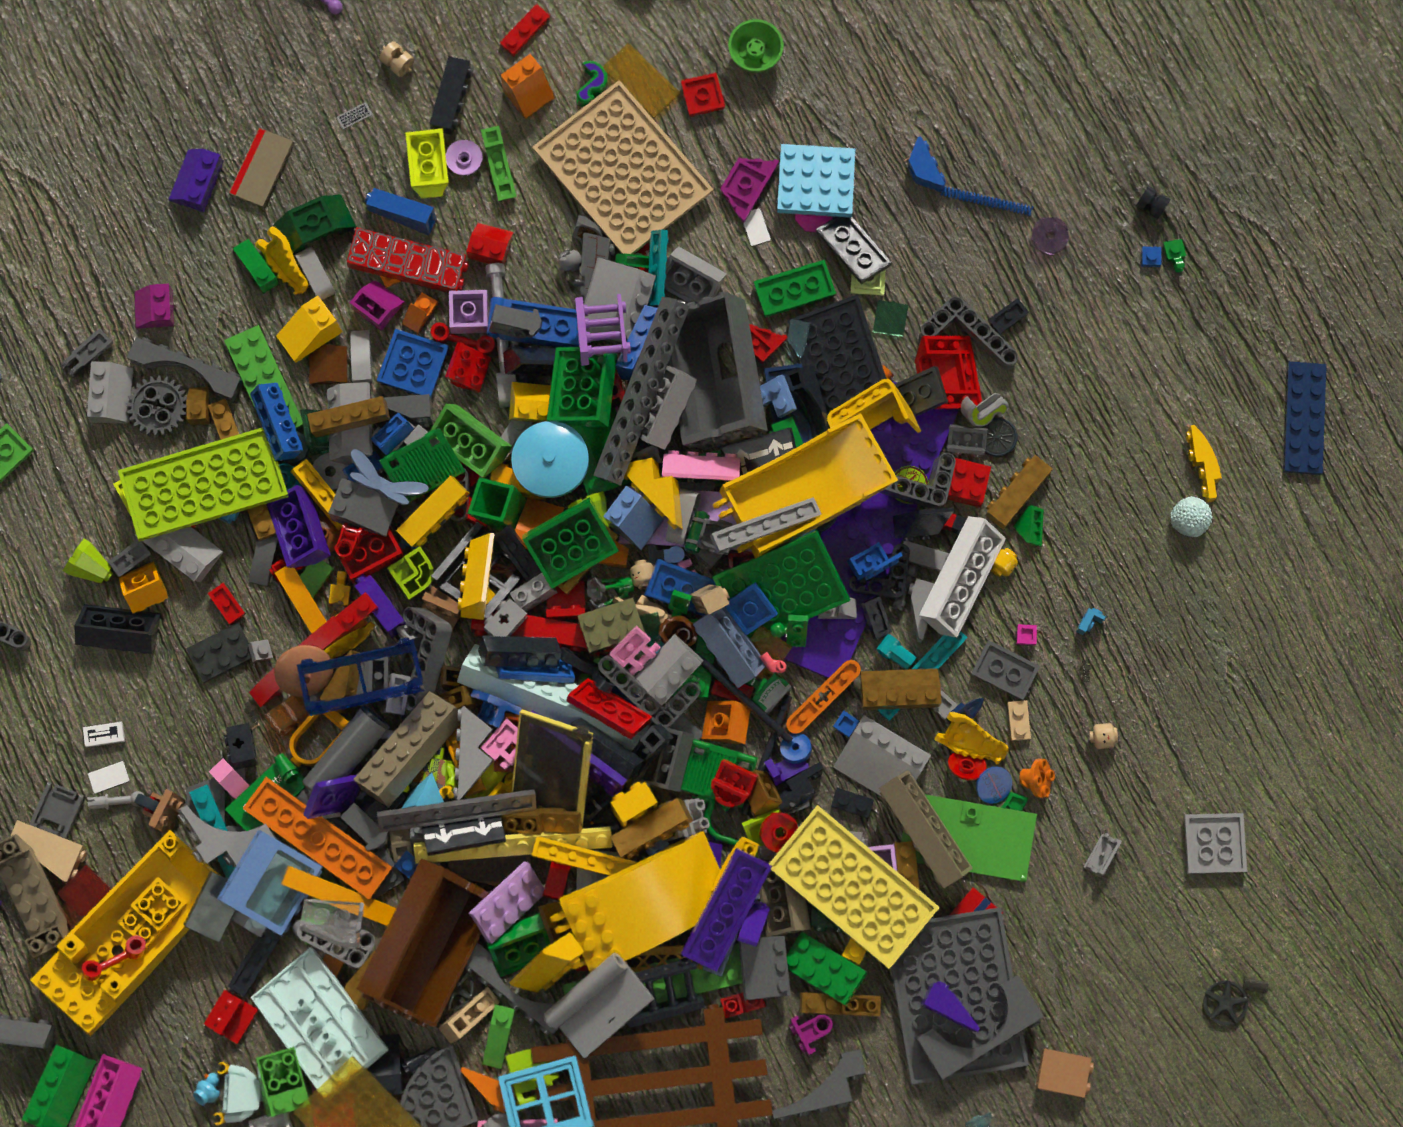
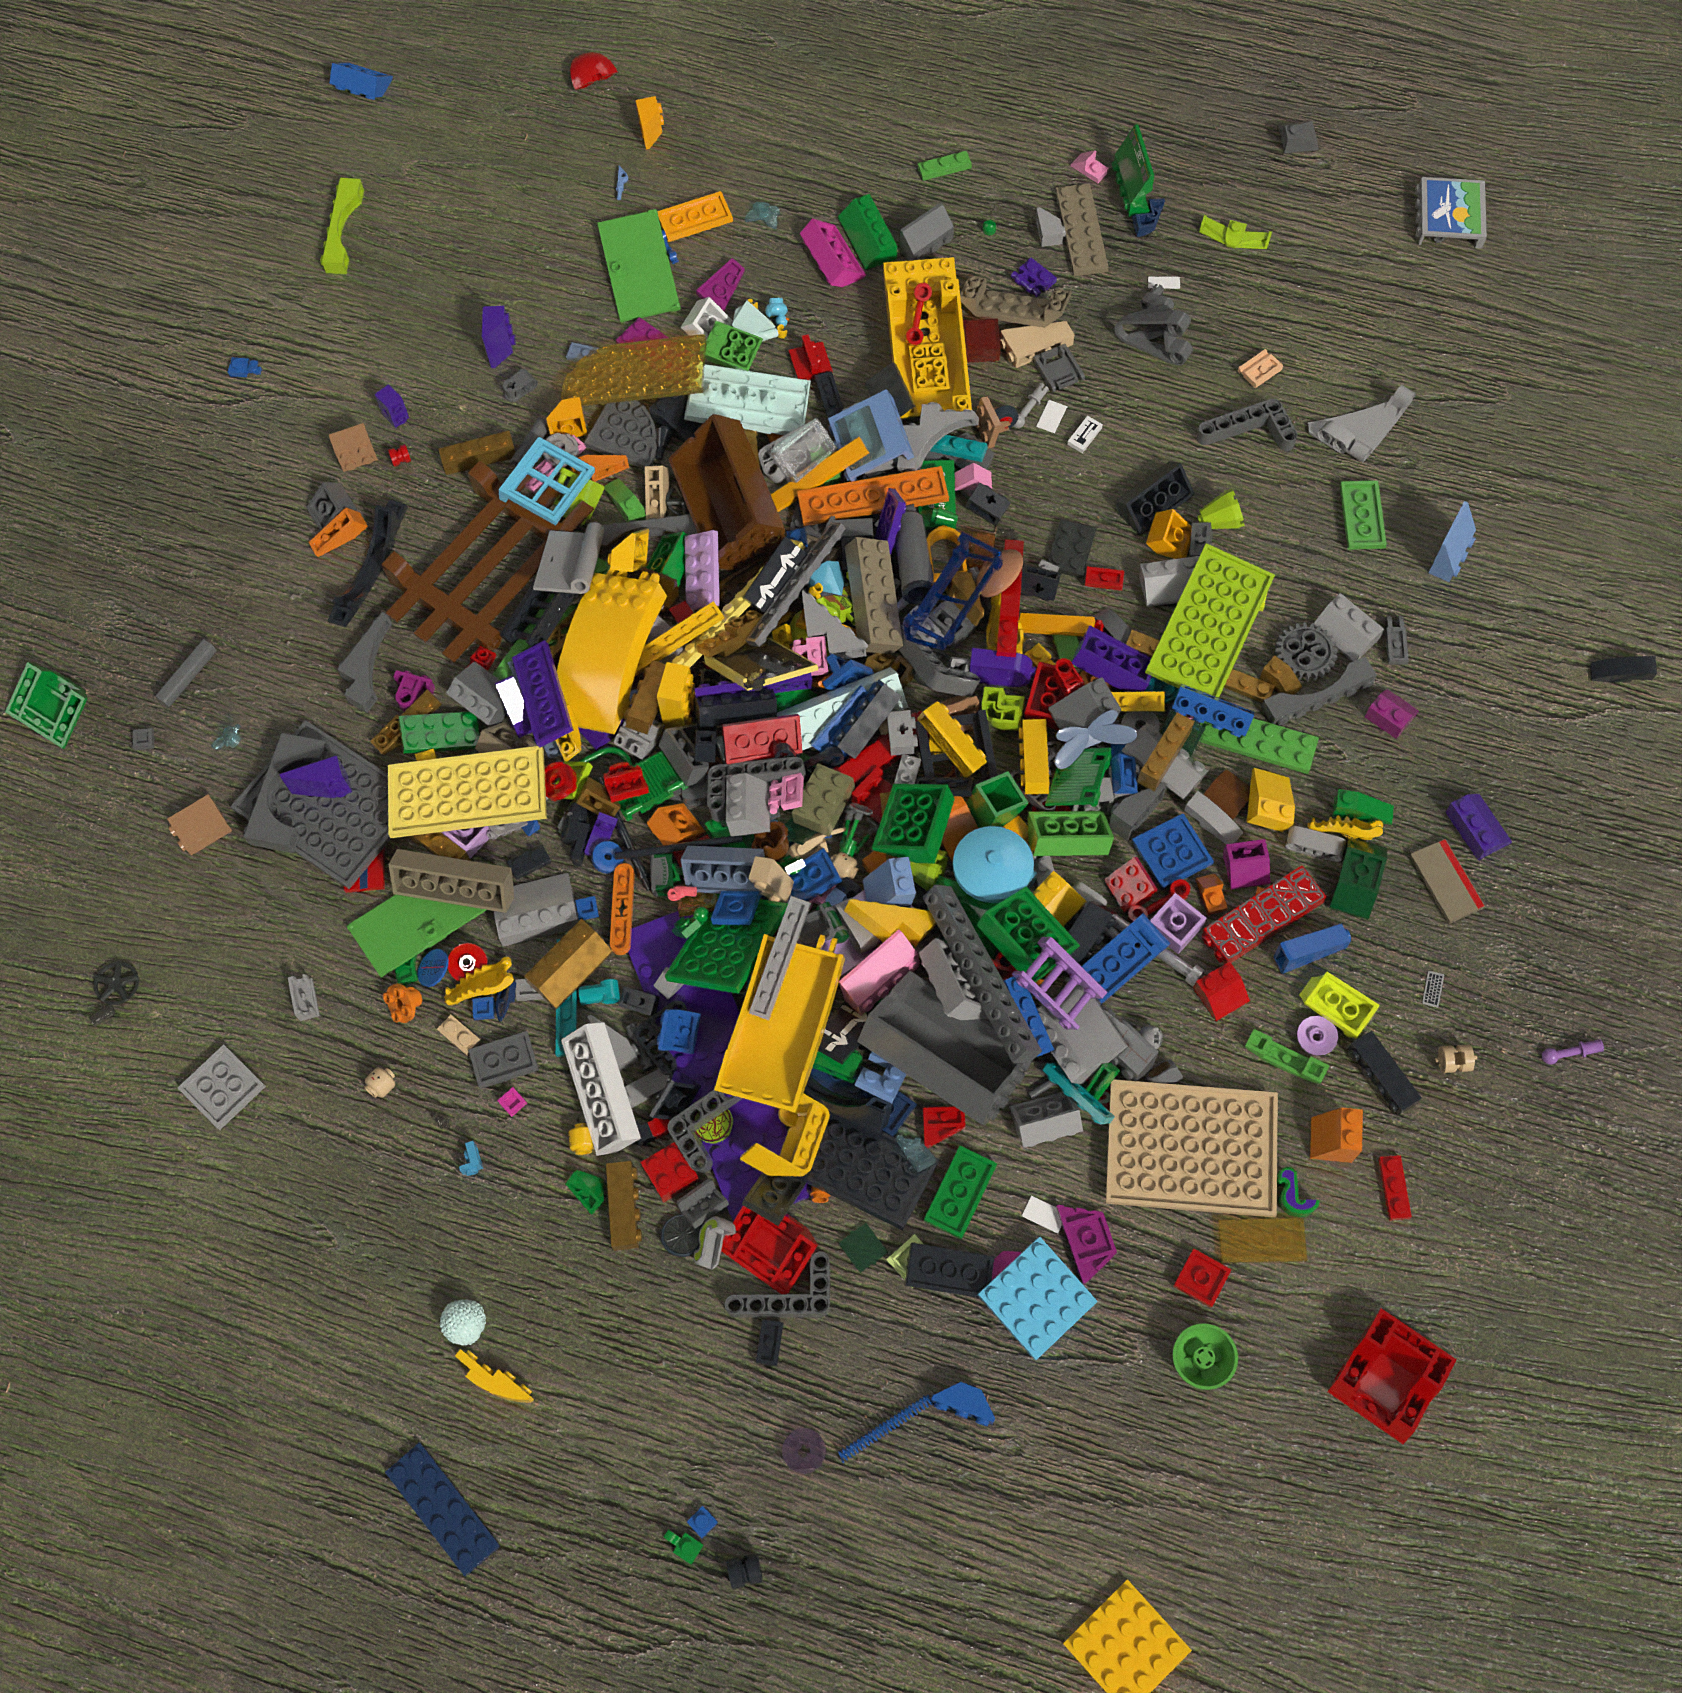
camera: 140 degrees right, 10 degrees down
(275, 640) = (1048, 579): none -> black brick
(515, 322) = (1129, 933): dark grey piece -> none
(986, 720) = (483, 1008): none -> blue plate

